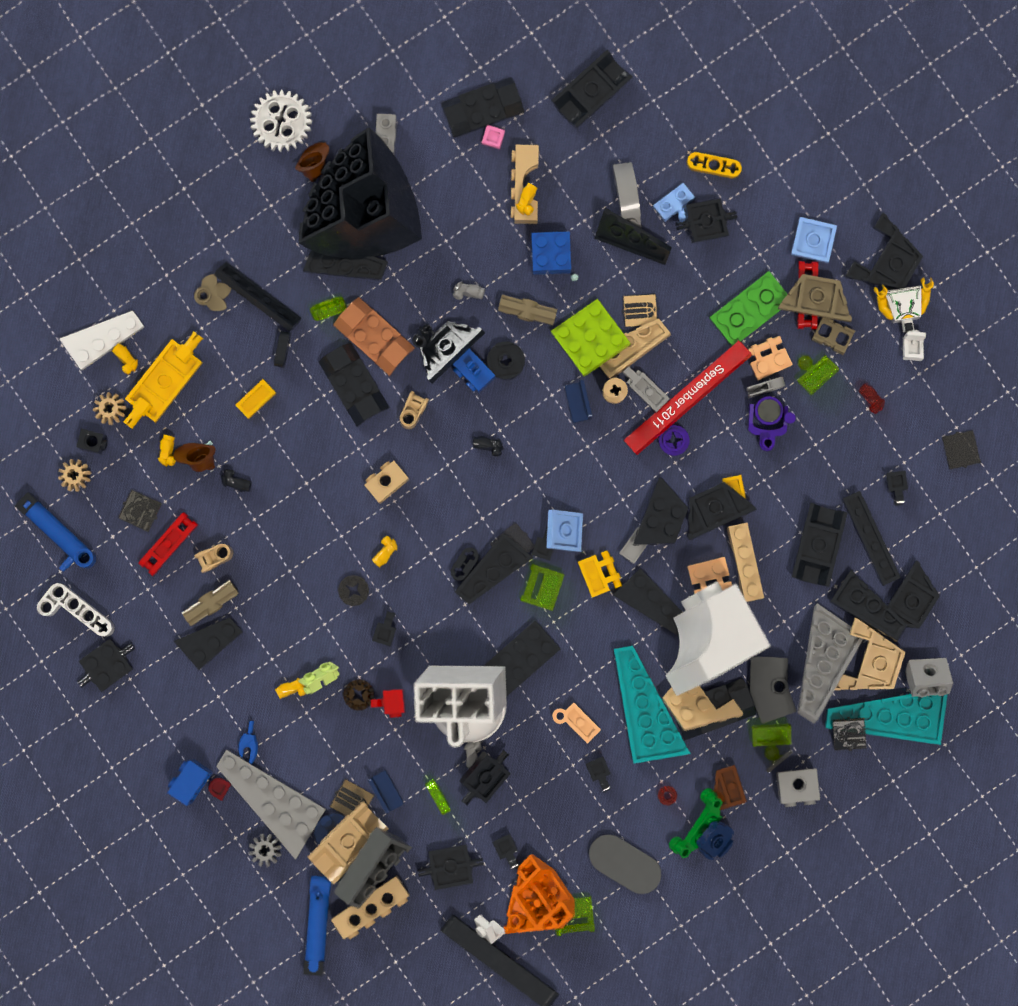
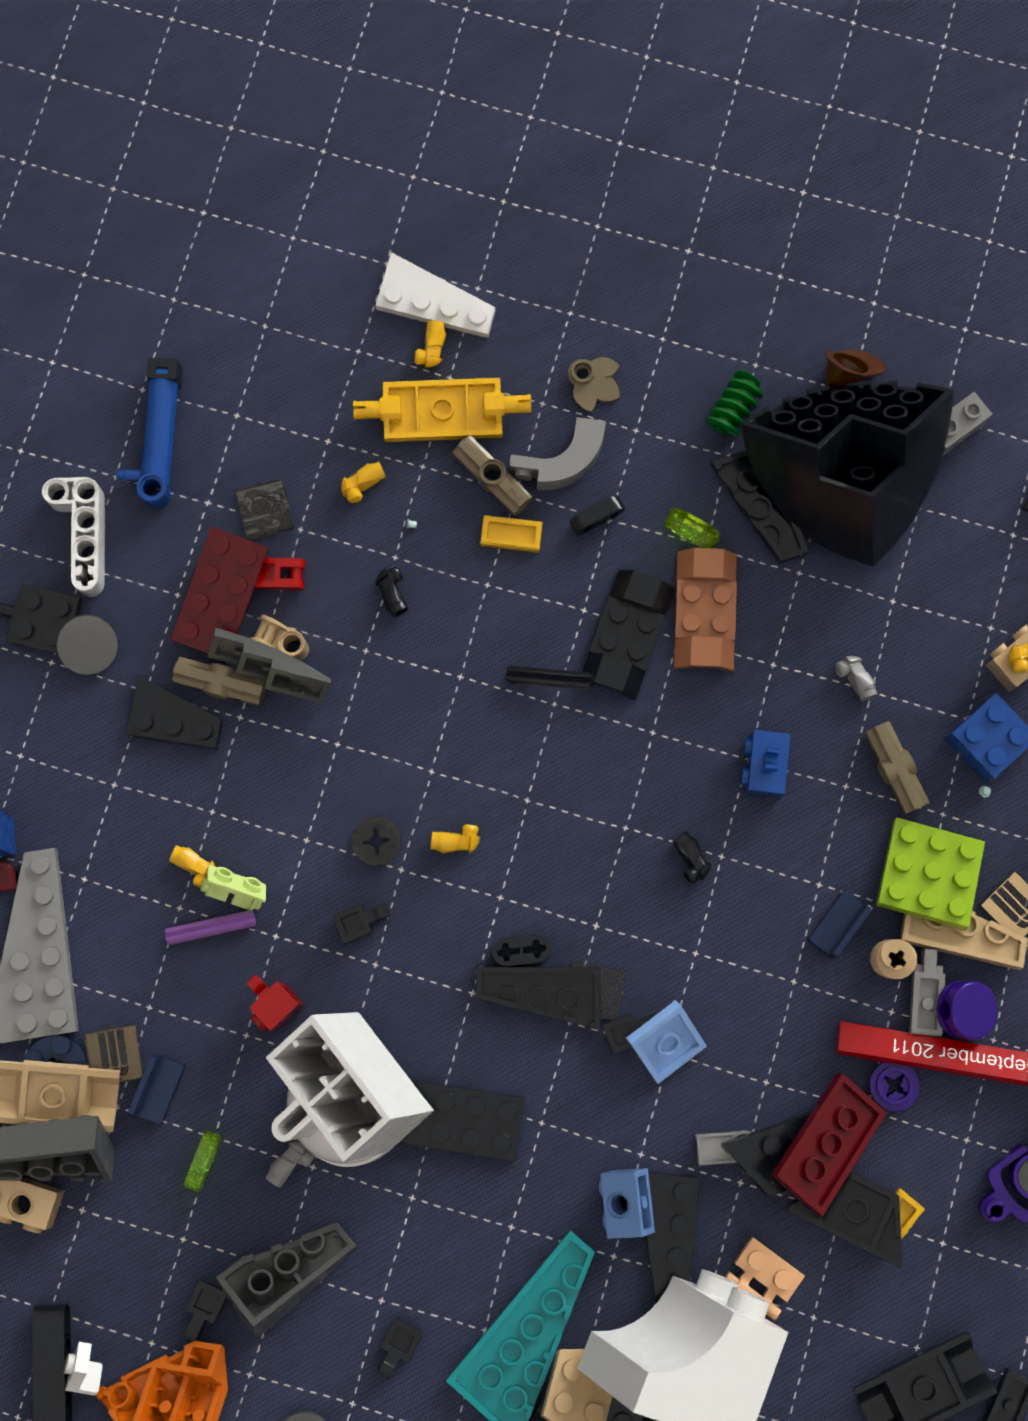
camera: 50 degrees right, 5 degrees down
(72, 483) = (243, 388): tan gear -> none
(86, 435) = (298, 374): black brick -> none
(116, 409) = (363, 382): tan gear -> none
(137, 653) = (87, 644): none -> dark grey tile
(166, 567) = (219, 588): none -> dark red plate
(197, 456) = (383, 520): reddish brown piece -> none
(205, 385) = (480, 462): none -> dark tan piece
(227, 570) = (278, 669): none -> dark grey slope
(246, 341) = (569, 465): none -> light grey arch
(249, 740) = (87, 866): blue hand -> none
(257, 296) = (635, 435): black plate -> none
(283, 234) = (734, 403): none -> green piece
(297, 125) = (876, 314): white gear -> none
(328, 704) = (210, 927): none -> medium lavender axle
(344, 440) = (550, 677): none -> black axle
(349, 694) = (260, 966): dark brown gear -> none
(381, 492) = (525, 777): tan brick -> none
(415, 407) = (661, 729): tan piece -> none
(421, 337) = (755, 666): black arm -> none
(447, 347) = (768, 707): wing -> none
(450, 867) = (126, 1252): black plate -> none
(484, 777) = (273, 1201): black plate -> none
(512, 352) = (829, 787): black plate -> none
(523, 804) = (275, 1281): none -> dark grey wedge
(548, 590) = (577, 1082): clear neon green plate -> none
(578, 722) = (441, 1262): light nougat hinge -> none
(594, 576) = (641, 1127): yellow plate -> none
(620, 602) = (635, 1188): none -> medium blue brick
(667, 376) = (966, 1010): none -> dark purple head
(674, 494) = (829, 1144): none -> dark red plate
(745, 561) = (834, 1294): tan arch -> none

